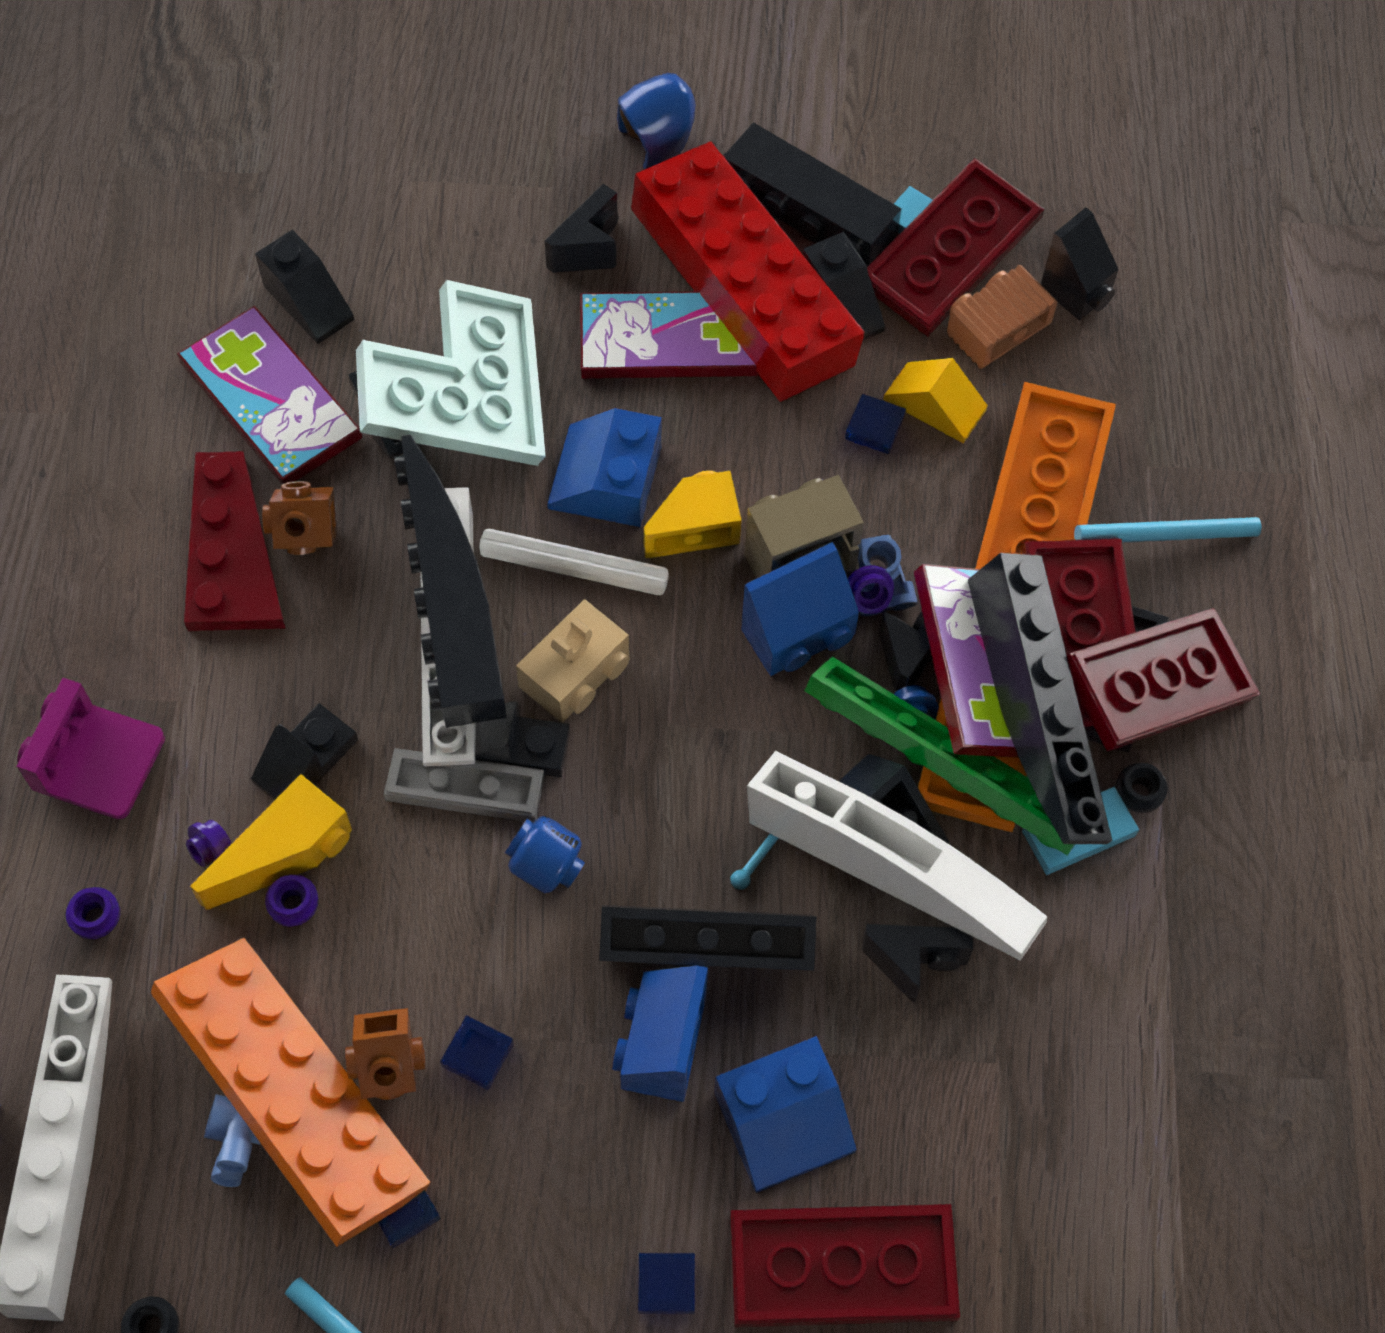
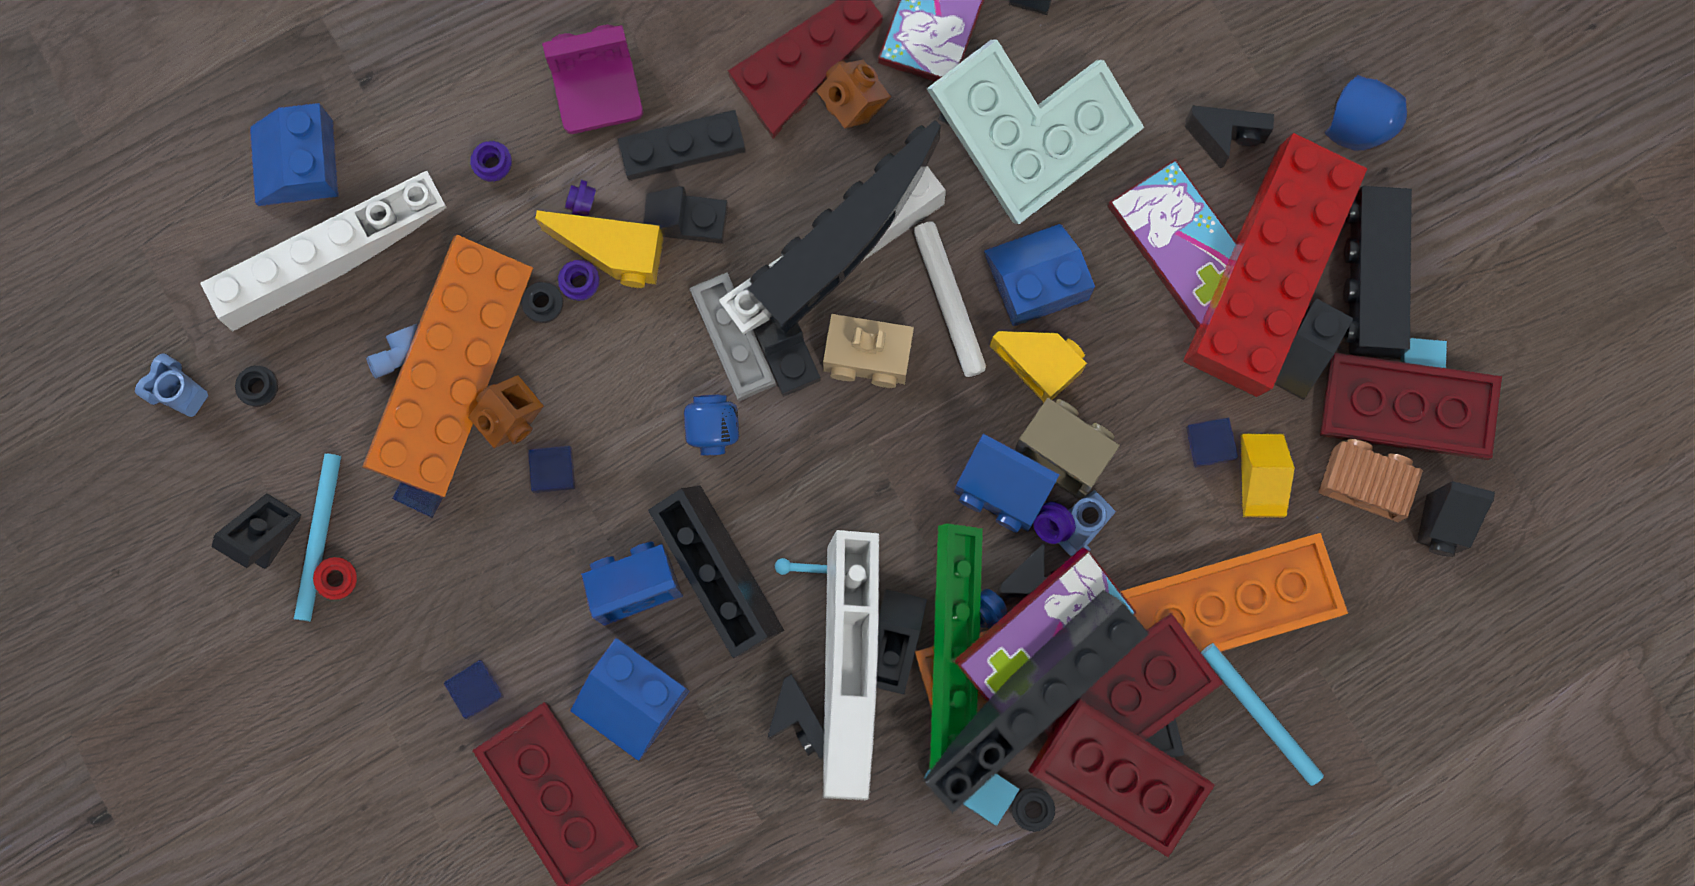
camera: 60 degrees right, 15 degrees up
(225, 715) = (681, 145): none -> black plate
(295, 964) = (550, 311): none -> black plate

